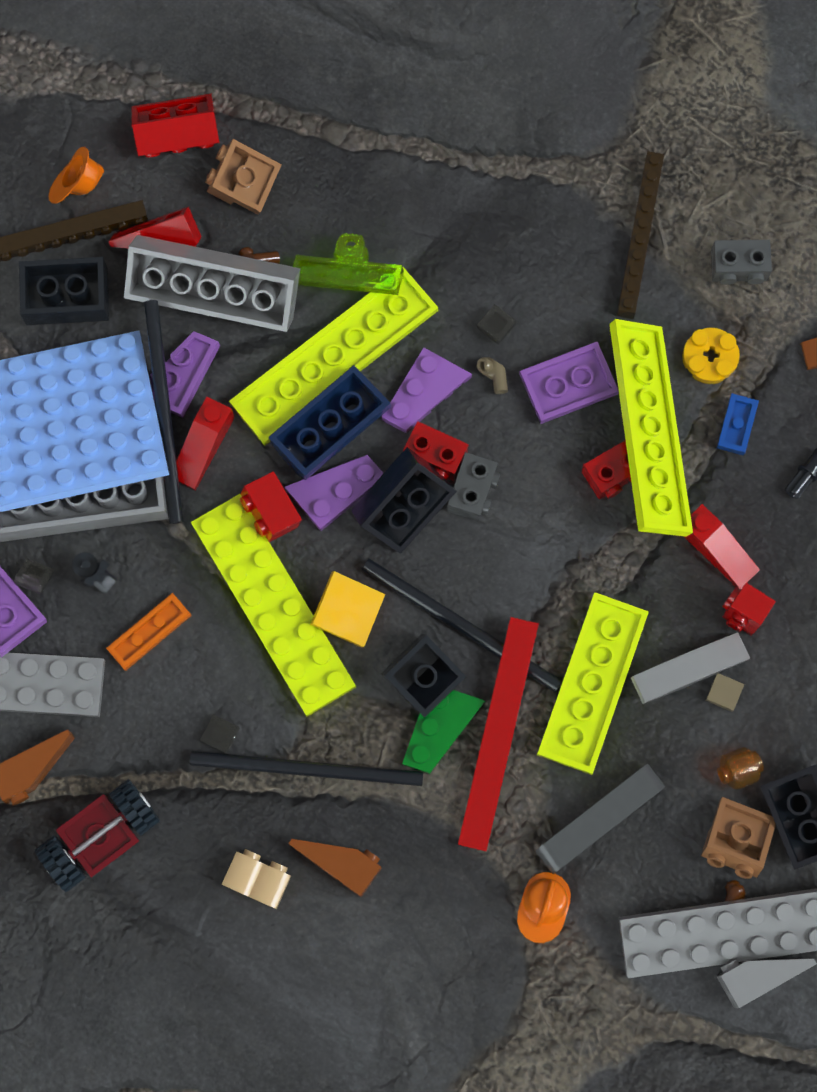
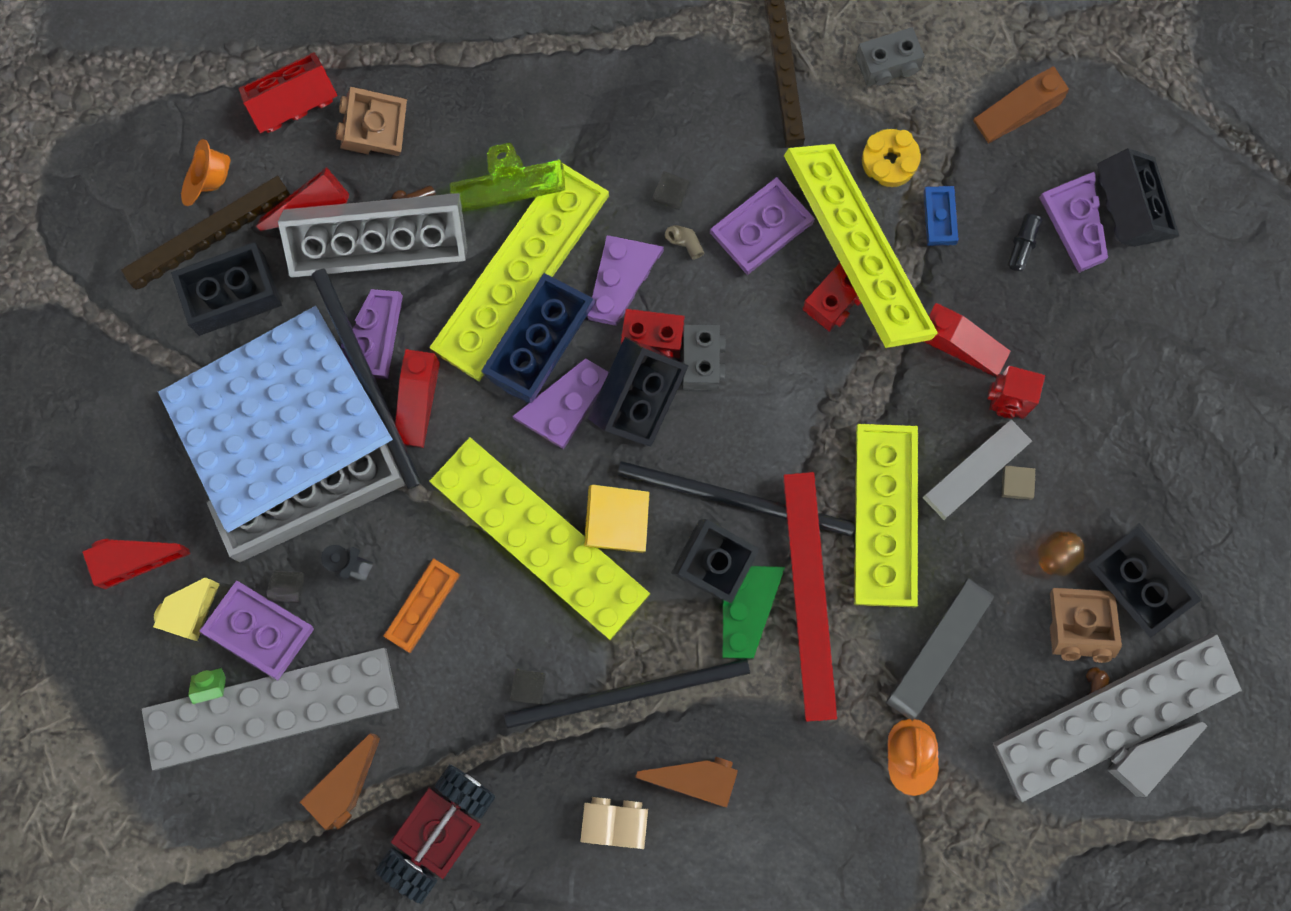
camera: 15 degrees left, 0 degrees up
(270, 507) = (505, 440): red brick -> none

